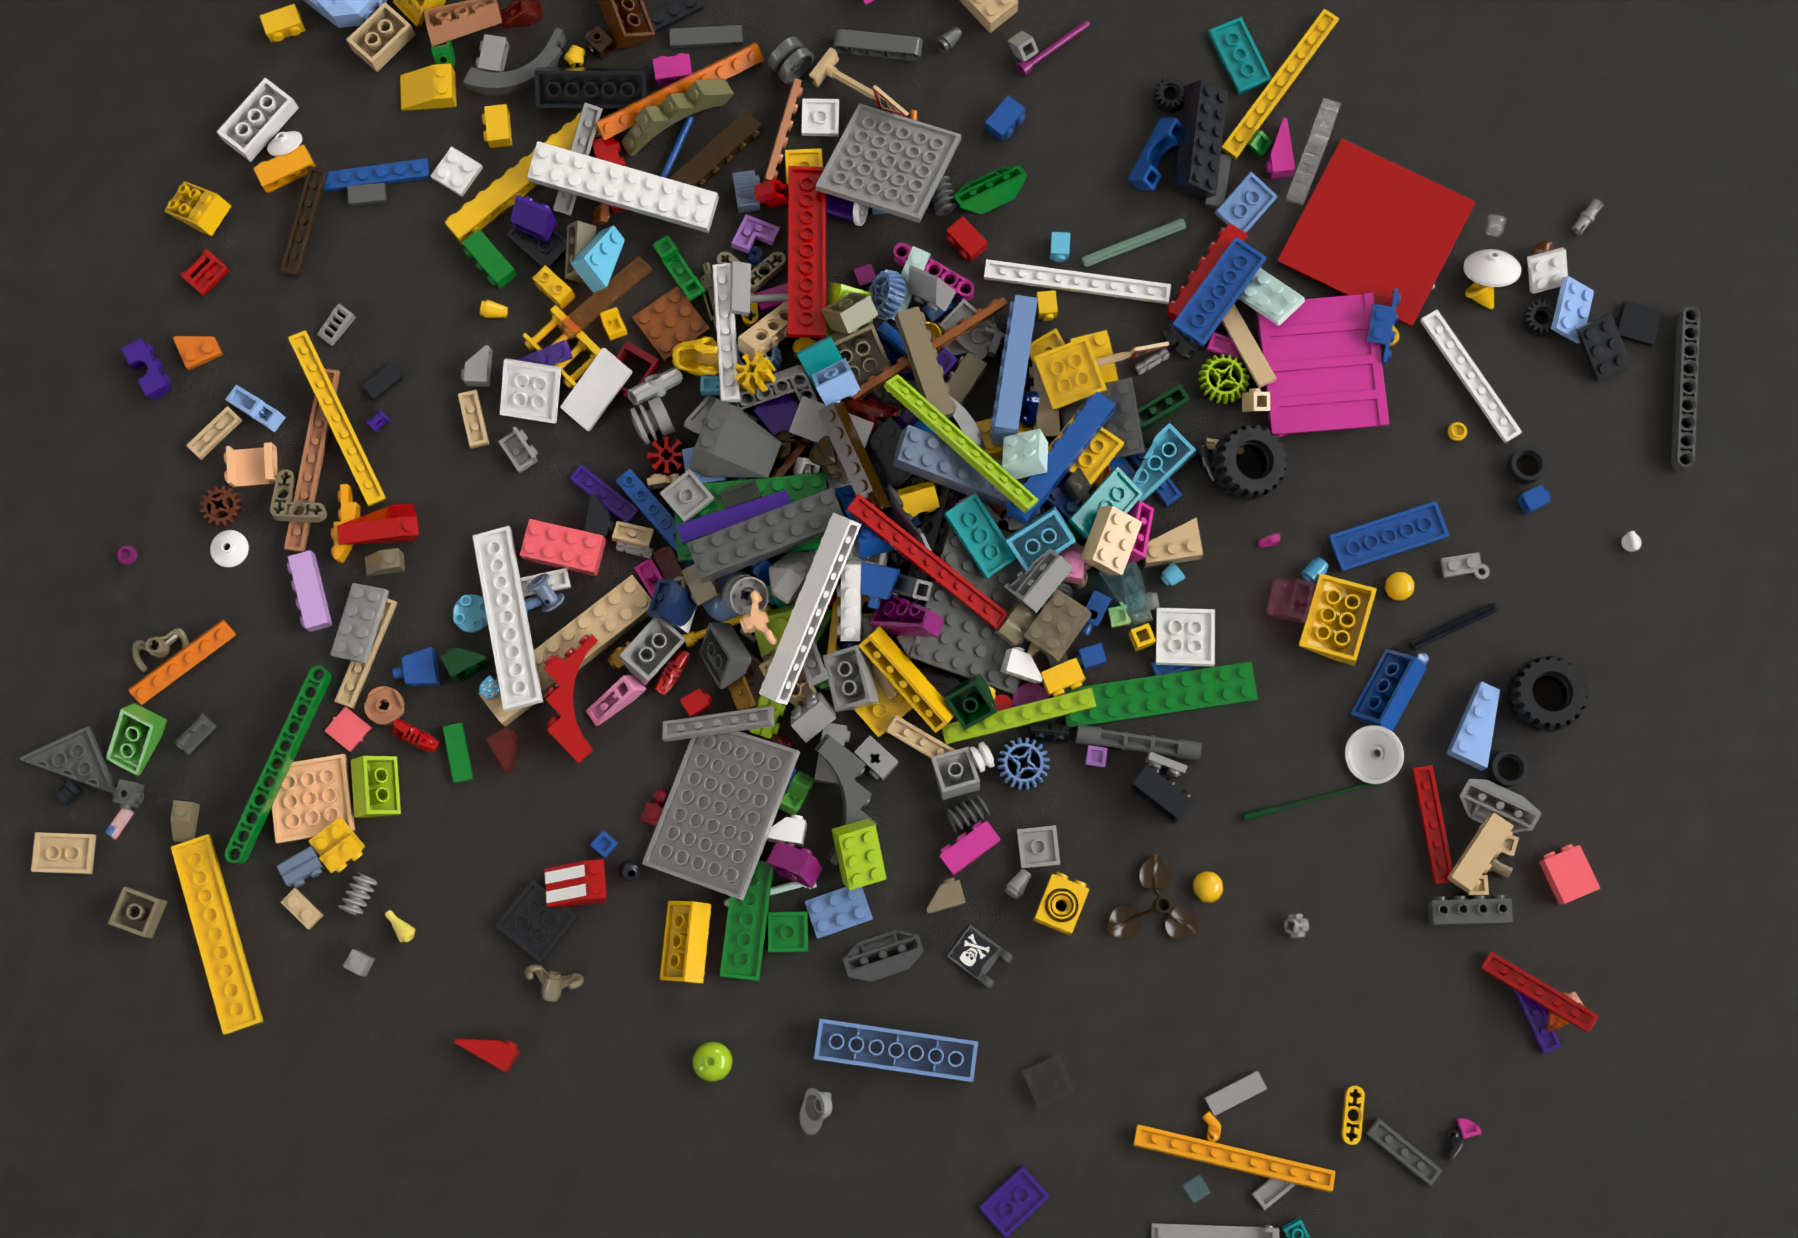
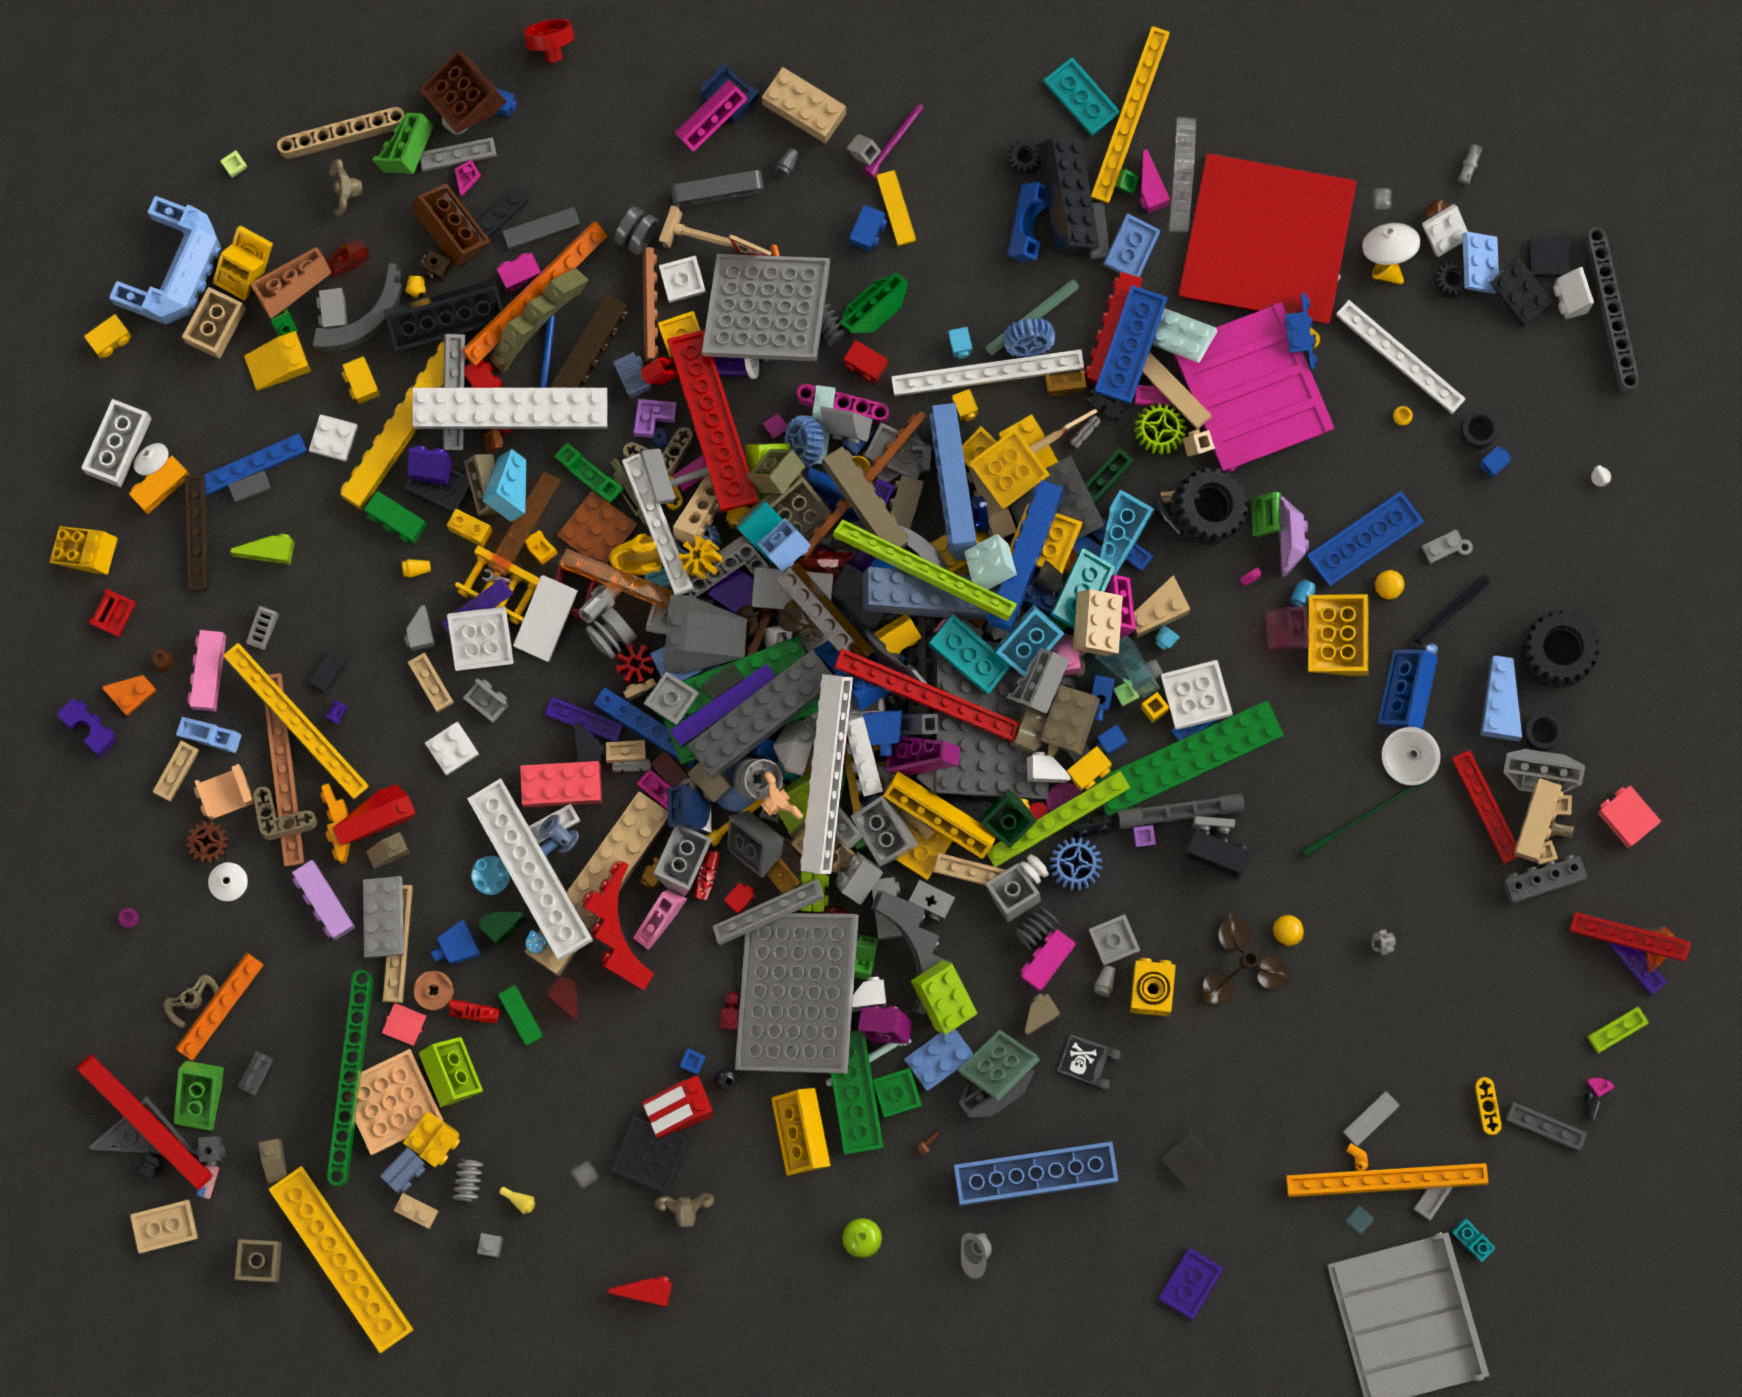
camera: 15 degrees left, 0 degrees up
(76, 749) = (144, 1121): none -> red beam
(236, 328) = (162, 660): none -> reddish brown hat
(272, 349) = (208, 670): none -> bright pink brick
(363, 254) = (269, 549): none -> lime slope
(470, 921) = (585, 1174): none -> clear plate
(474, 485) = (452, 748): none -> white plate
(559, 337) = (493, 577): none -> light grey hand
(671, 370) = (616, 578): none -> clear orange tile
(797, 991) = (923, 1147): none -> reddish brown hand
(891, 934) = (998, 1065): none -> sand green plate
(1037, 108) = (896, 208): none -> yellow tile
(1125, 258) = (1029, 337): none -> medium blue gear
(1147, 312) = (1065, 383): none -> pearl gold hinge
(1296, 486) = (1262, 515): none -> bright green plate
(1319, 513) = (1292, 538): none -> lavender wedge
(1500, 1078) = (1618, 1029): none -> lime tile
(1654, 363) = (1573, 294): none -> white slope

